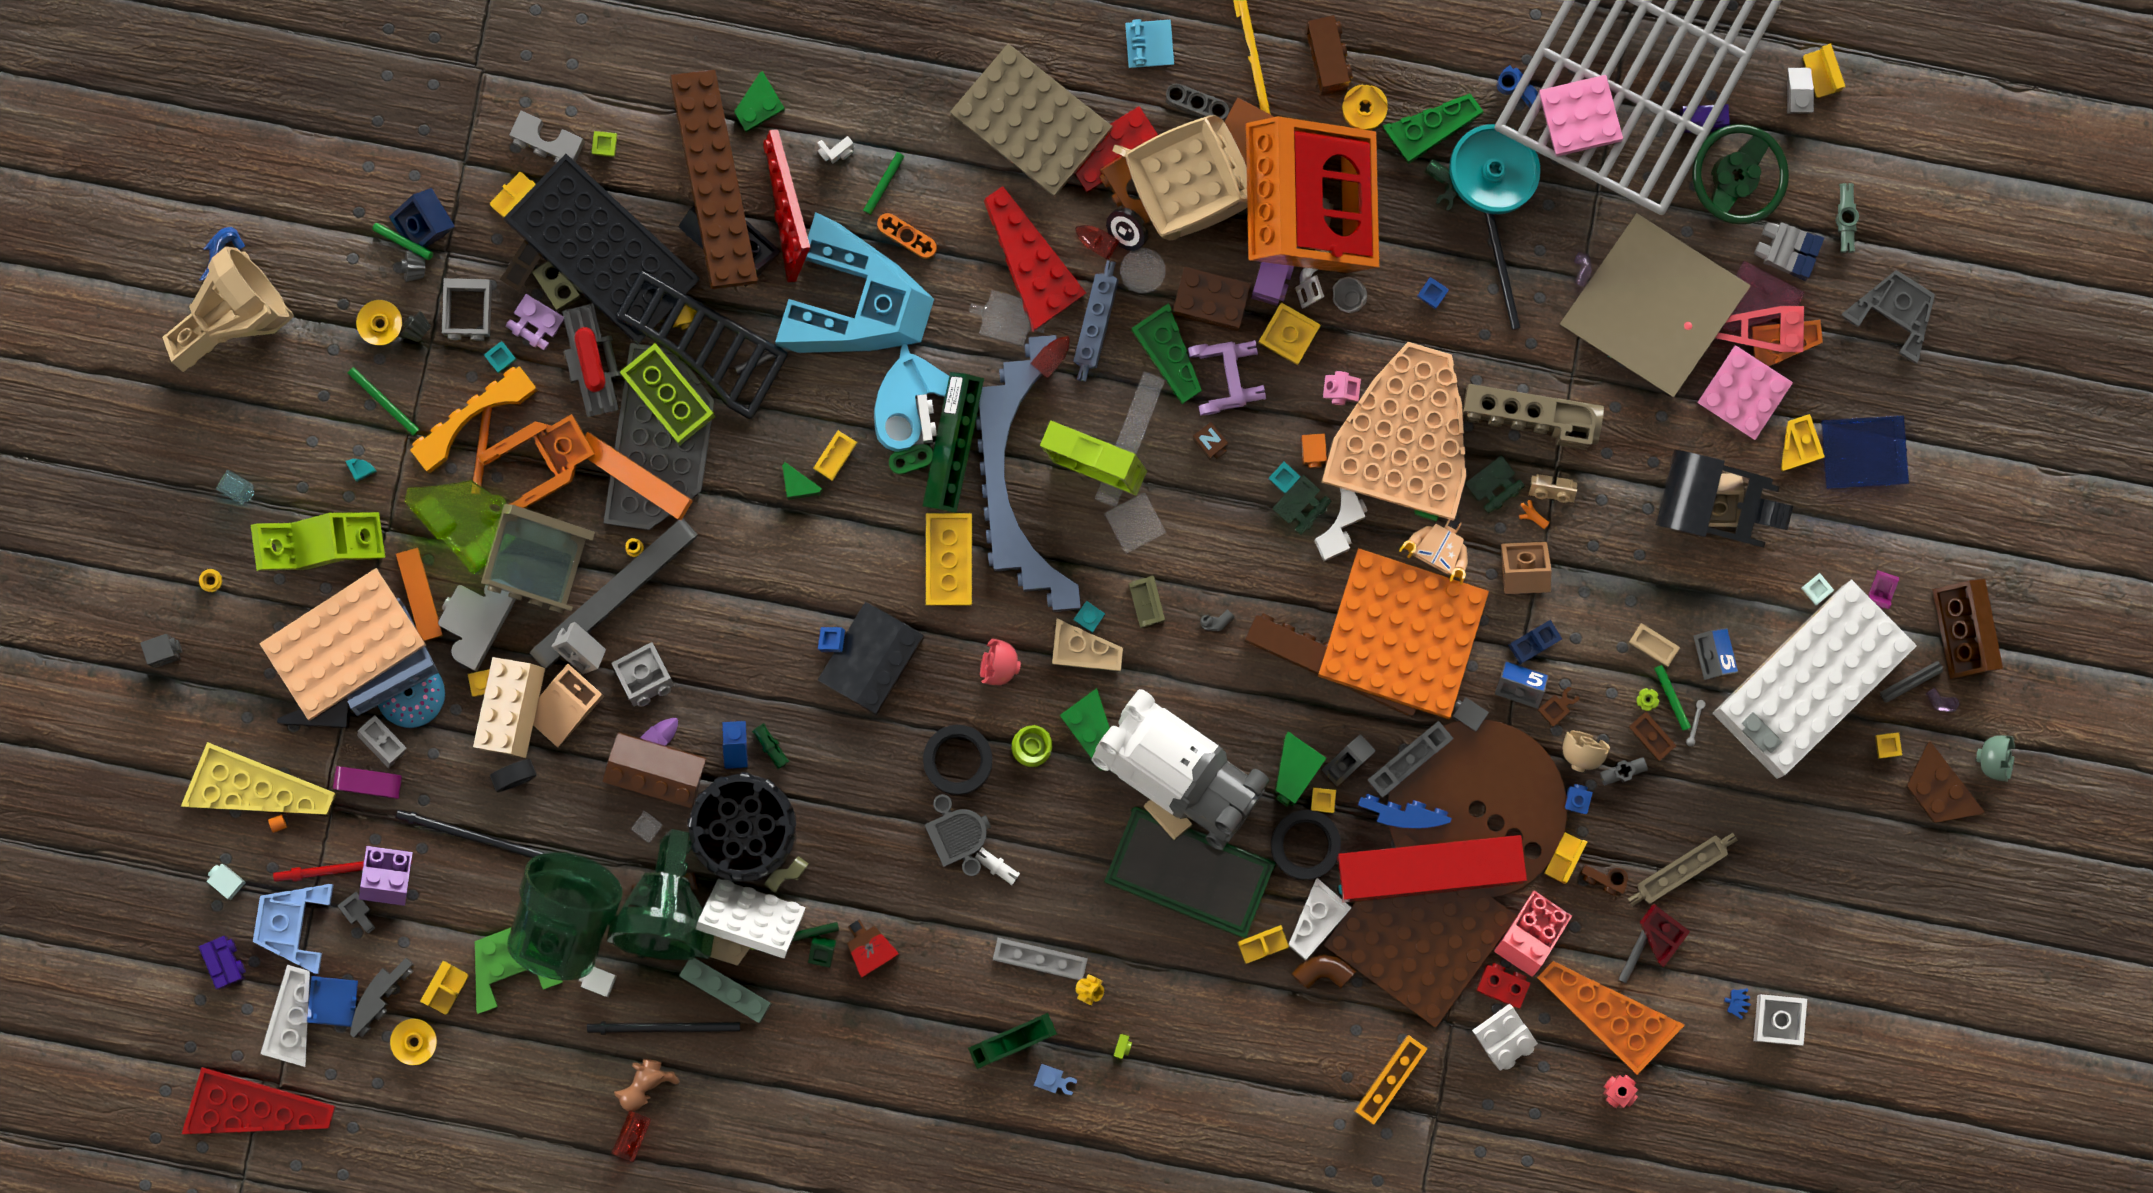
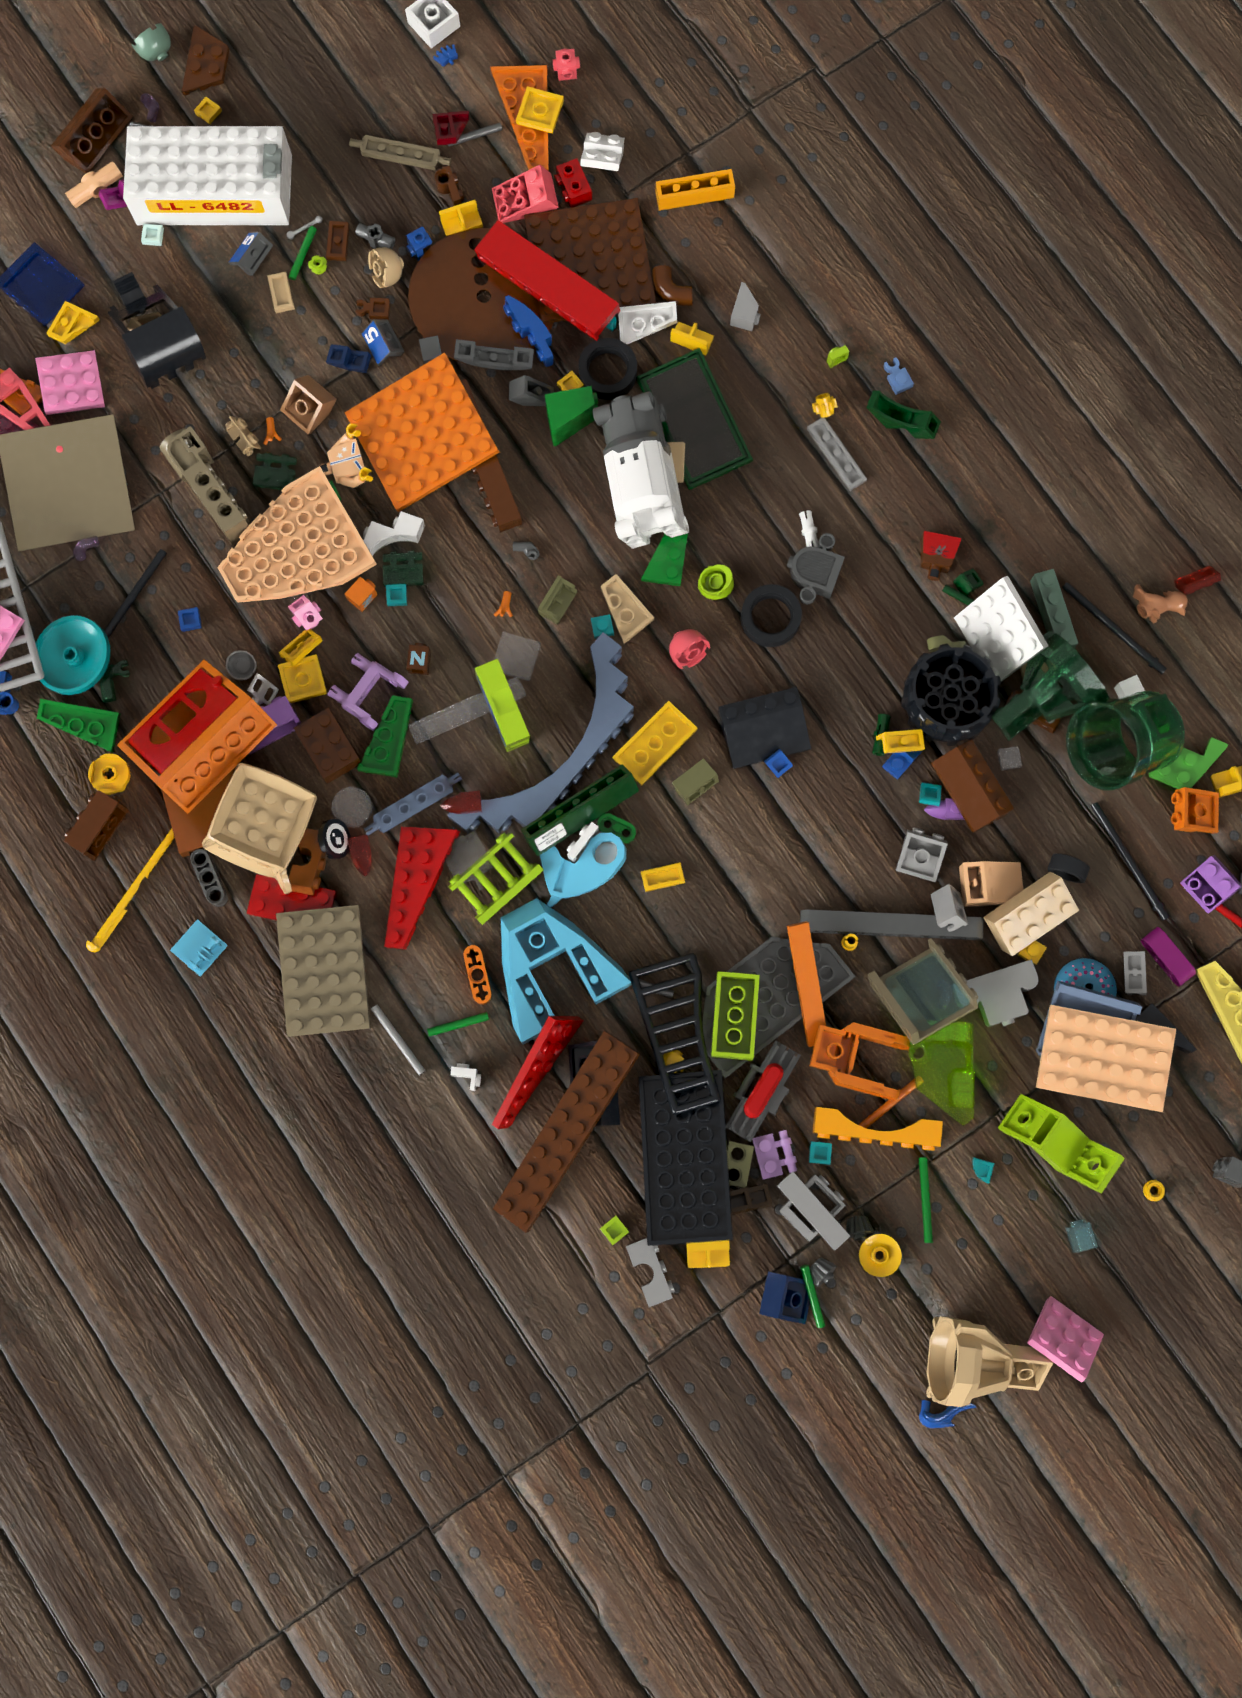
camera: 130 degrees left, 5 degrees down
(177, 393) = (1065, 1339): none -> bright pink plate
(419, 594) = (1020, 1047): orange tile -> none
(453, 928) = (1195, 810): none -> orange plate
(462, 303) = (813, 1211): none -> light grey tile
(683, 734) = (930, 794): none -> teal tile
(746, 749) = (902, 741): none -> yellow panel
(758, 104) = (487, 1157): green wing -> none
(798, 485) = (705, 880): green slope -> none
(884, 558) = (695, 781): none -> olive hinge
(918, 125) = (398, 1040): none -> light grey bar
(948, 311) = (514, 884): none -> lime fence
(1186, 555) = (504, 607): none -> orange bar
(1240, 1012) = (745, 310): none -> light grey slope
(1313, 360) = (302, 649): none -> yellow tile
(1597, 1022) = (540, 110): none -> yellow plate
(1913, 582) = (92, 183): none -> light nougat piece

